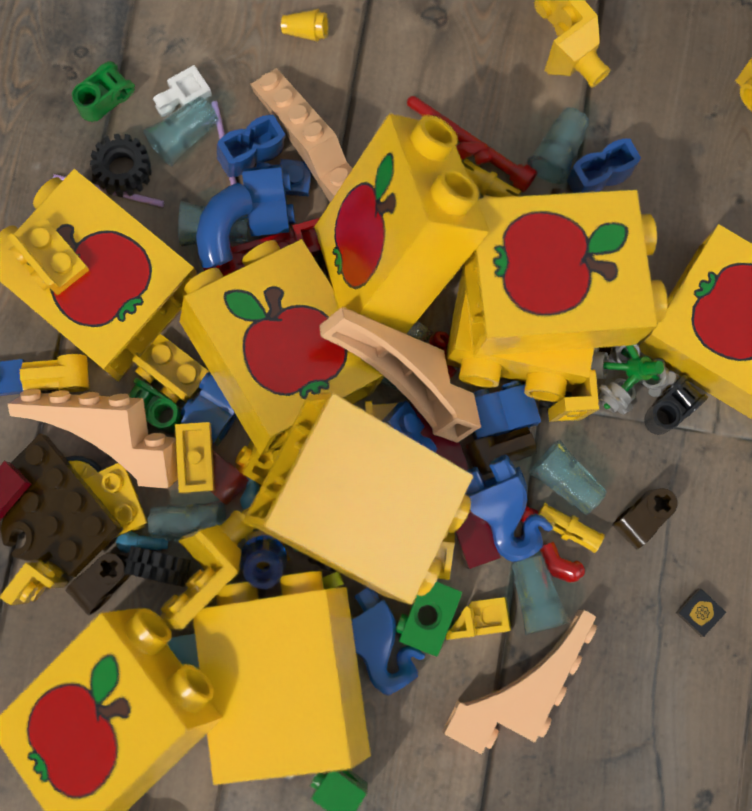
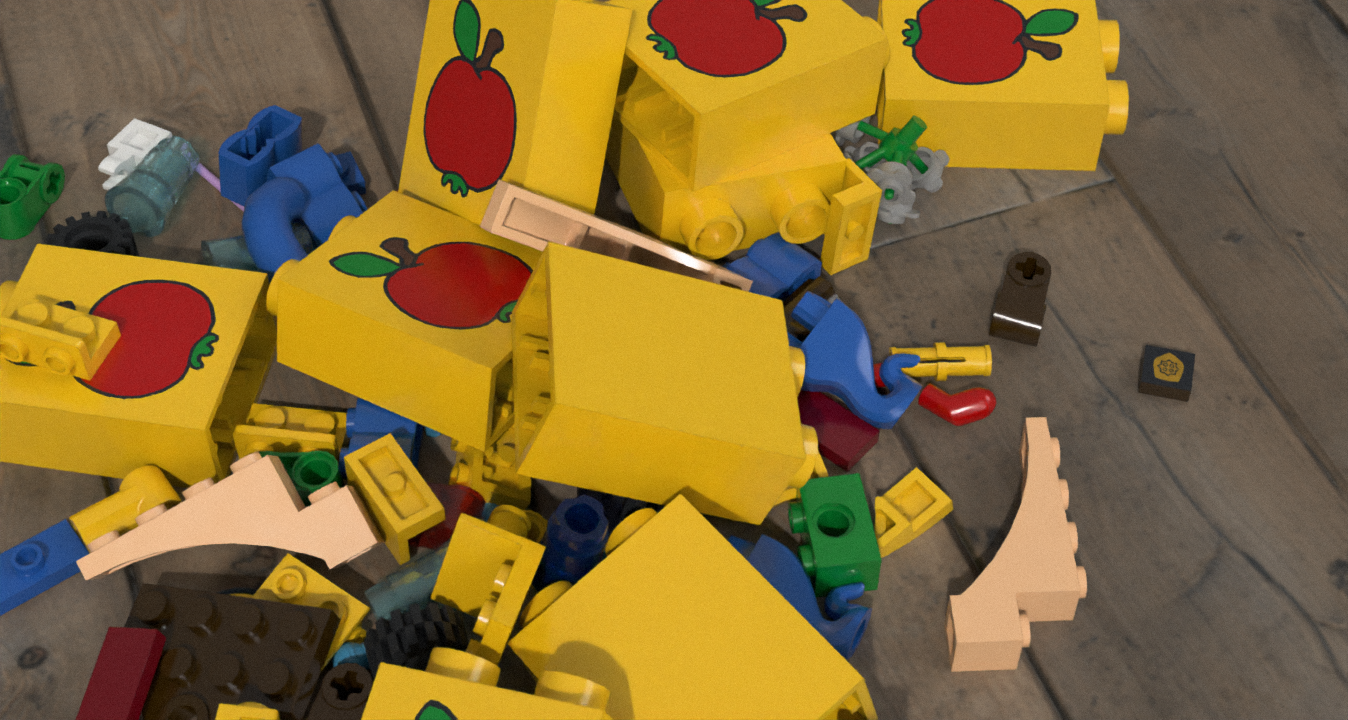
camera: 30 degrees left, 30 degrees down
(305, 130) = (336, 112): light nougat arch -> none
(306, 25) = (257, 33): yellow cone -> none
(538, 596) = (960, 444): clear light blue plant -> none
(568, 478) = (901, 306): clear light blue plant -> none
(677, 402) = (966, 190): black piece -> none

